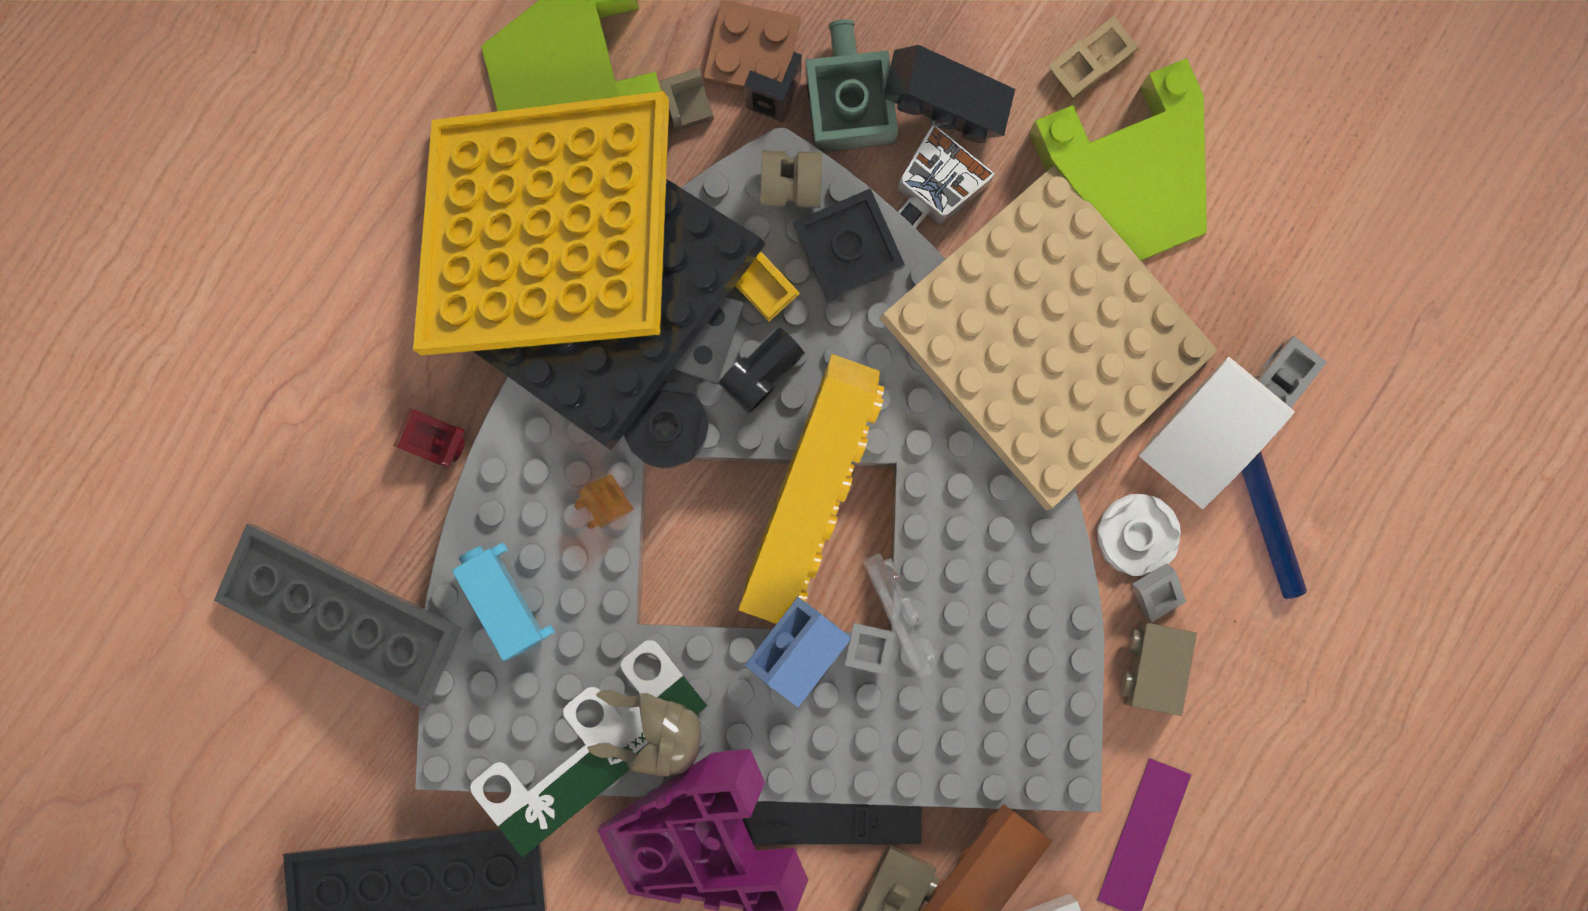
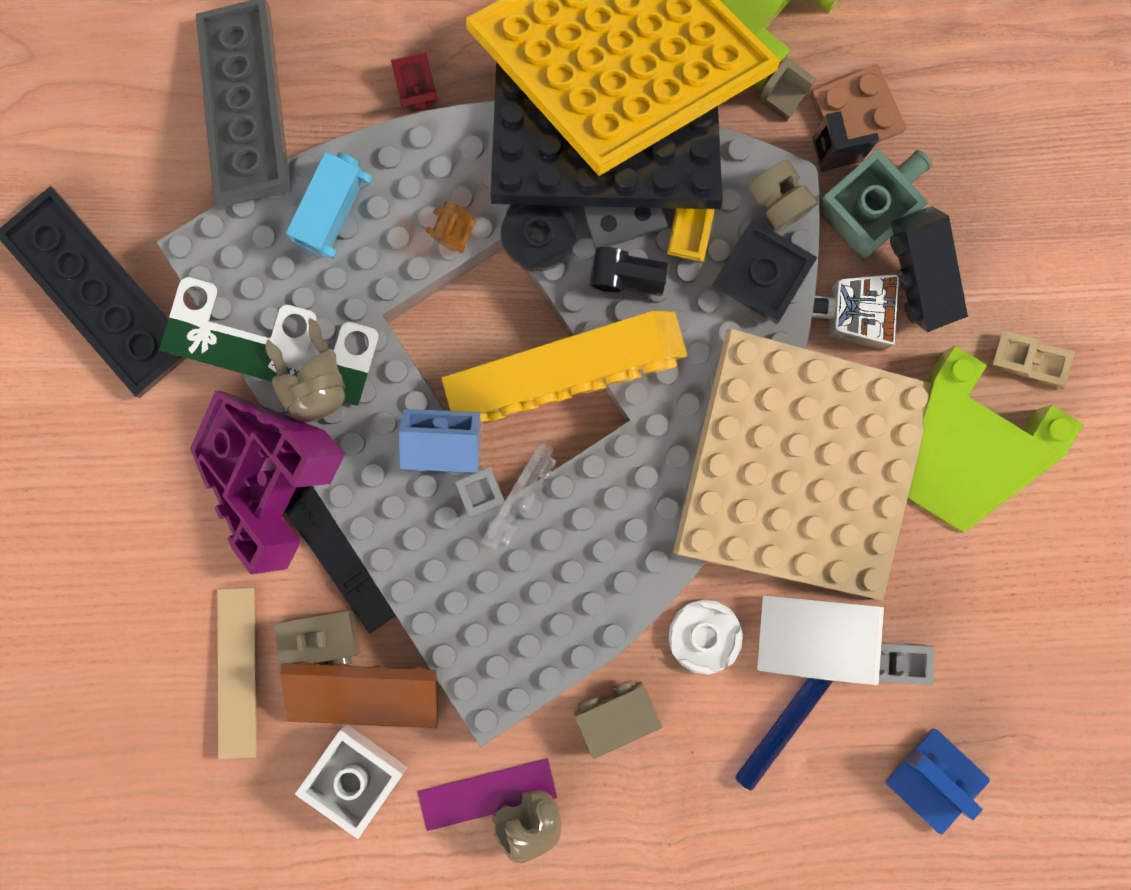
camera: 55 degrees right, 0 degrees up
(1159, 592) = (673, 680): light grey plate -> none
(1201, 819) = (528, 827): none -> dark tan hair
(1414, 417) = (938, 782): none -> blue bracket

